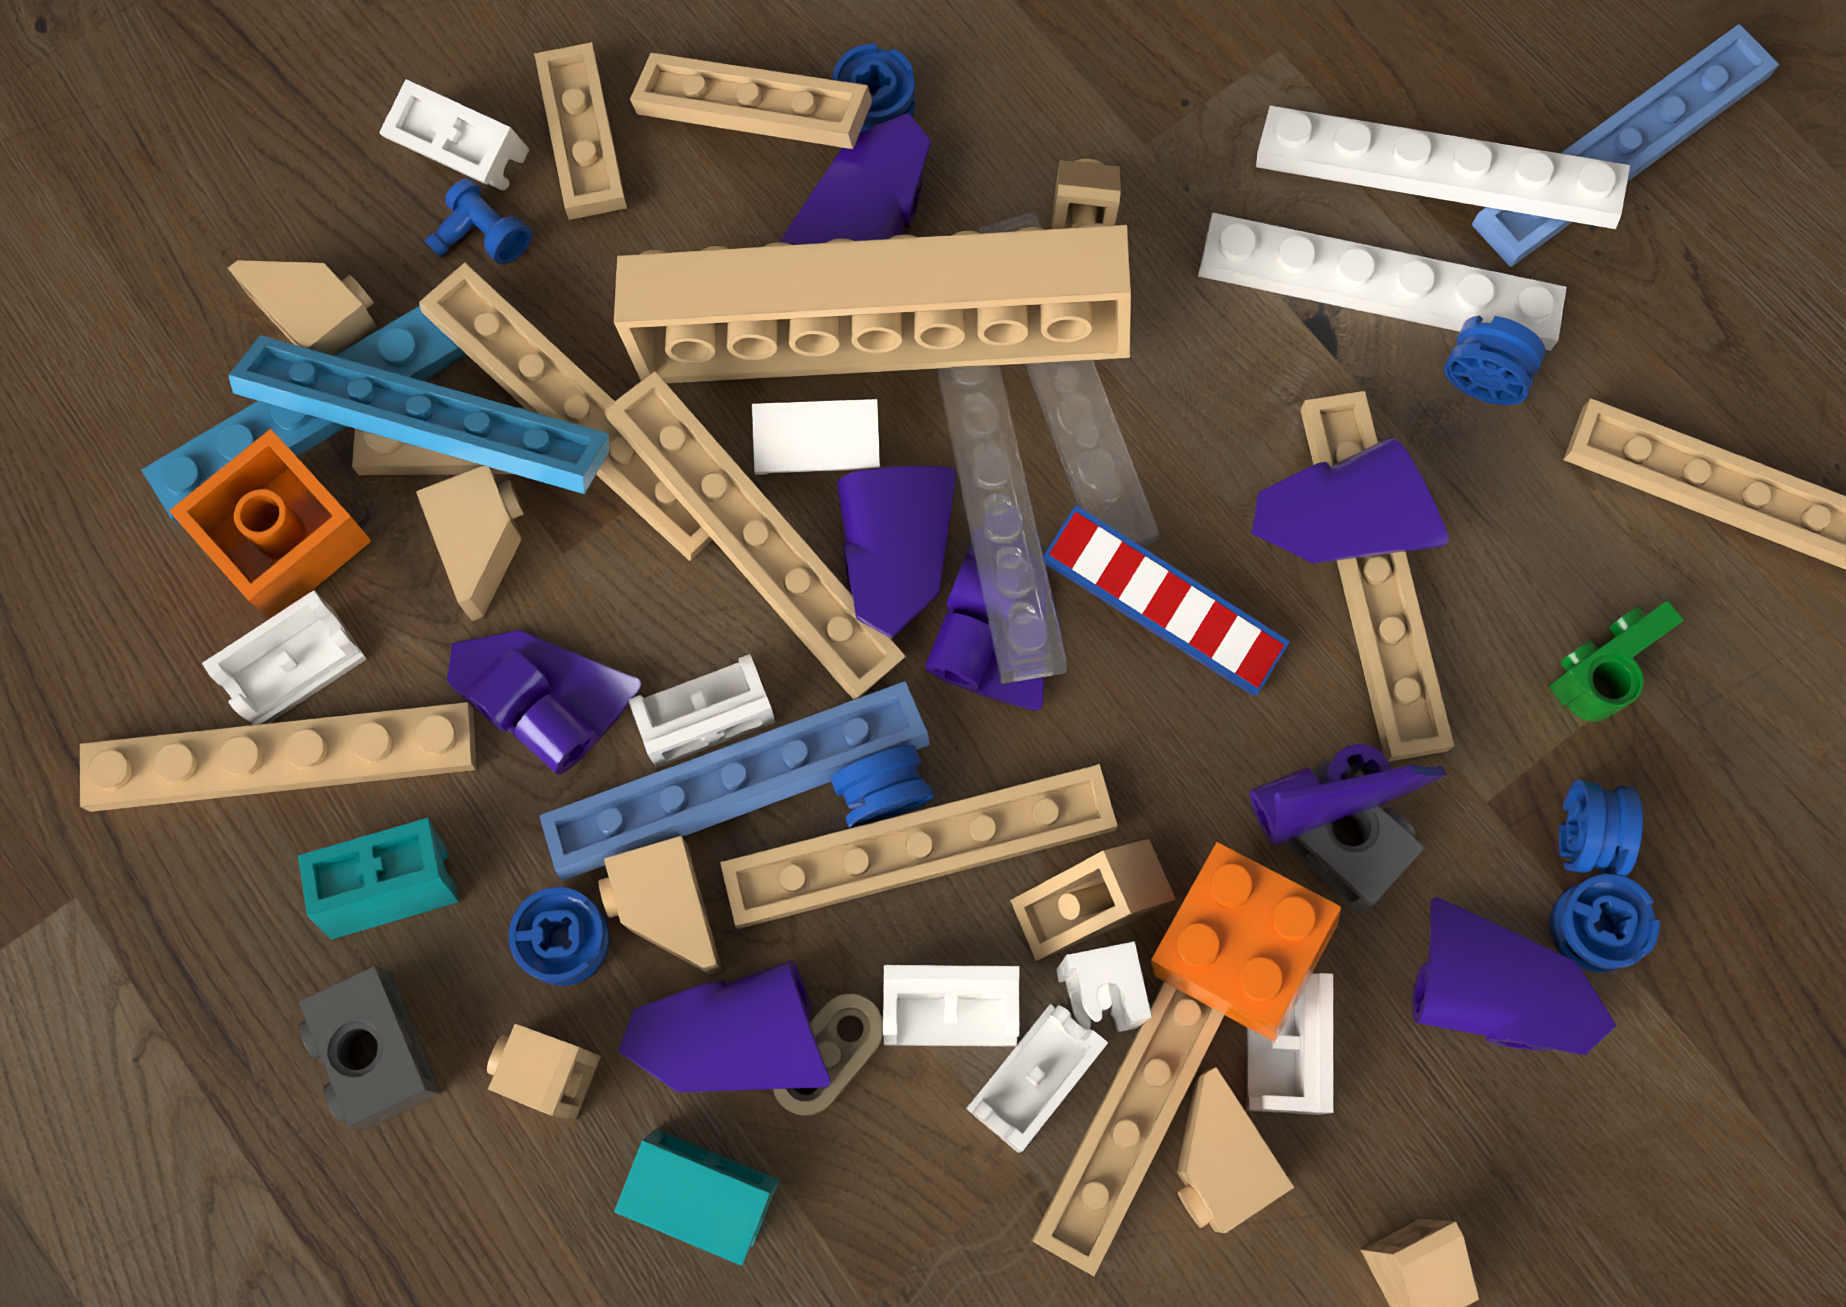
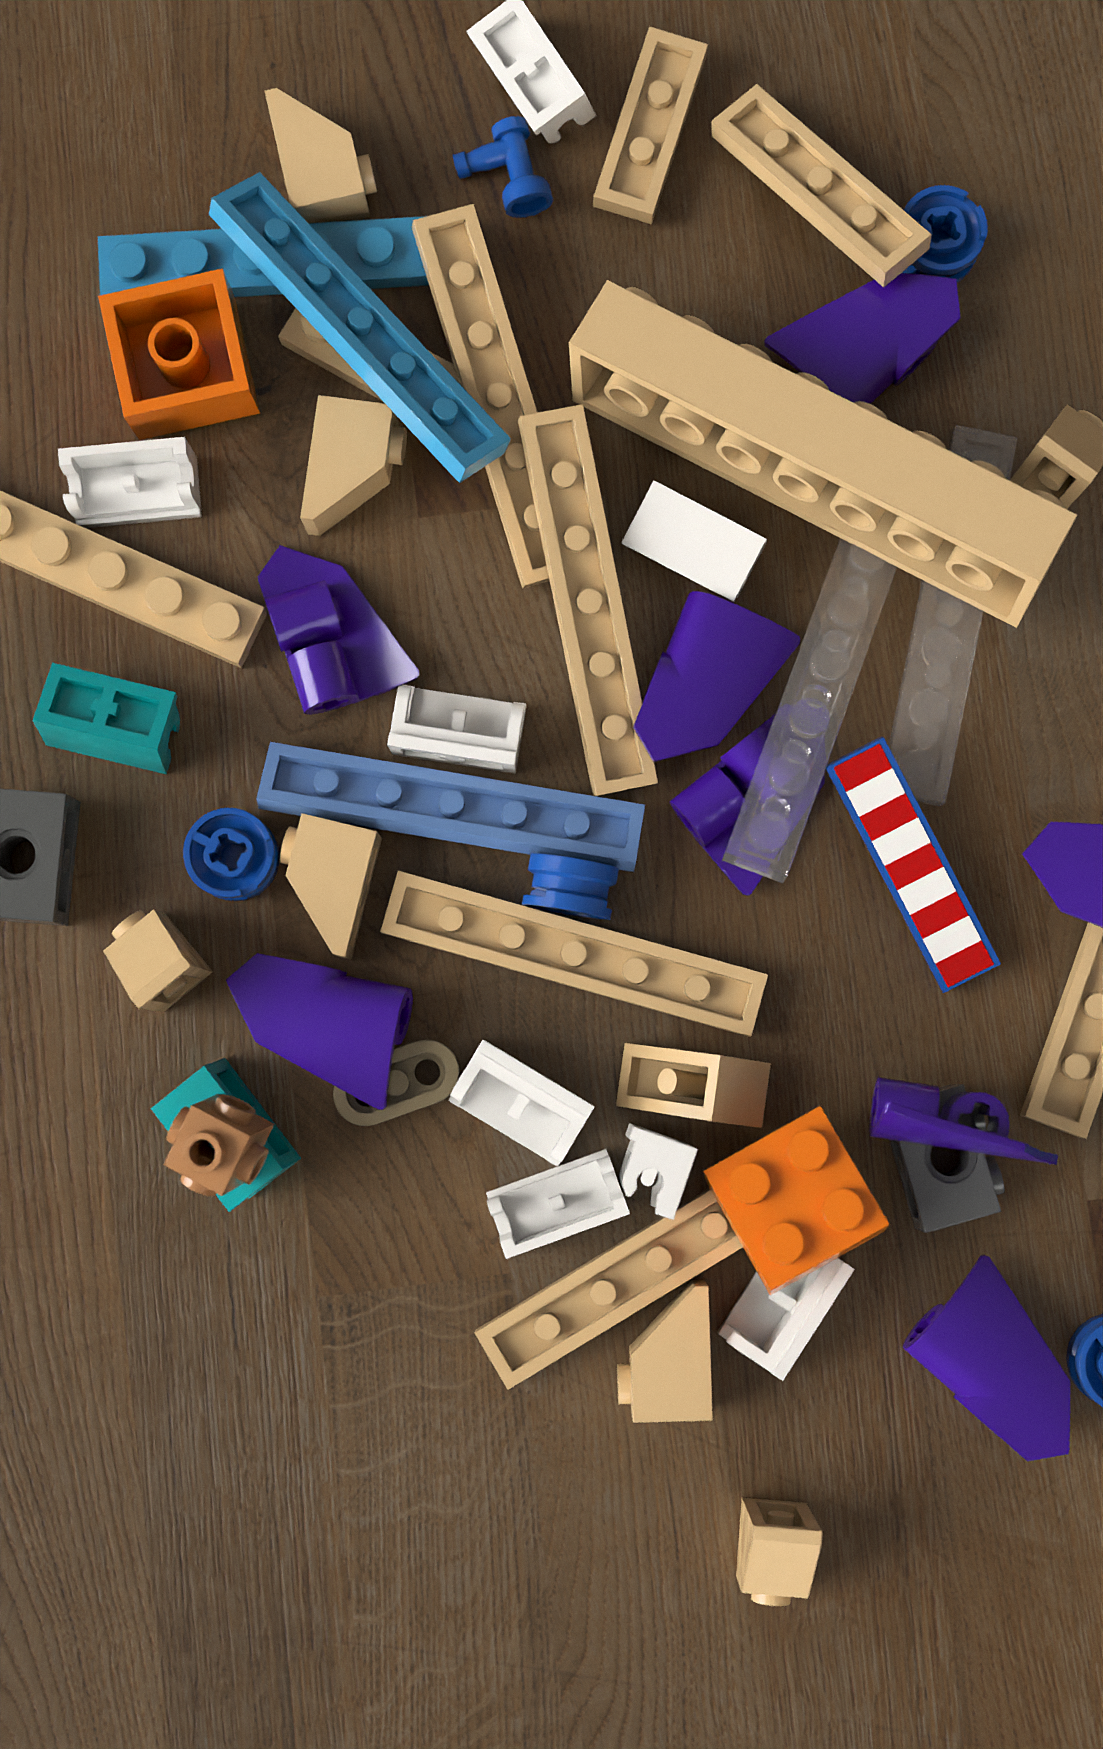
camera: 35 degrees right, 10 degrees up
(714, 1185) = (235, 1135): none -> medium nougat brick

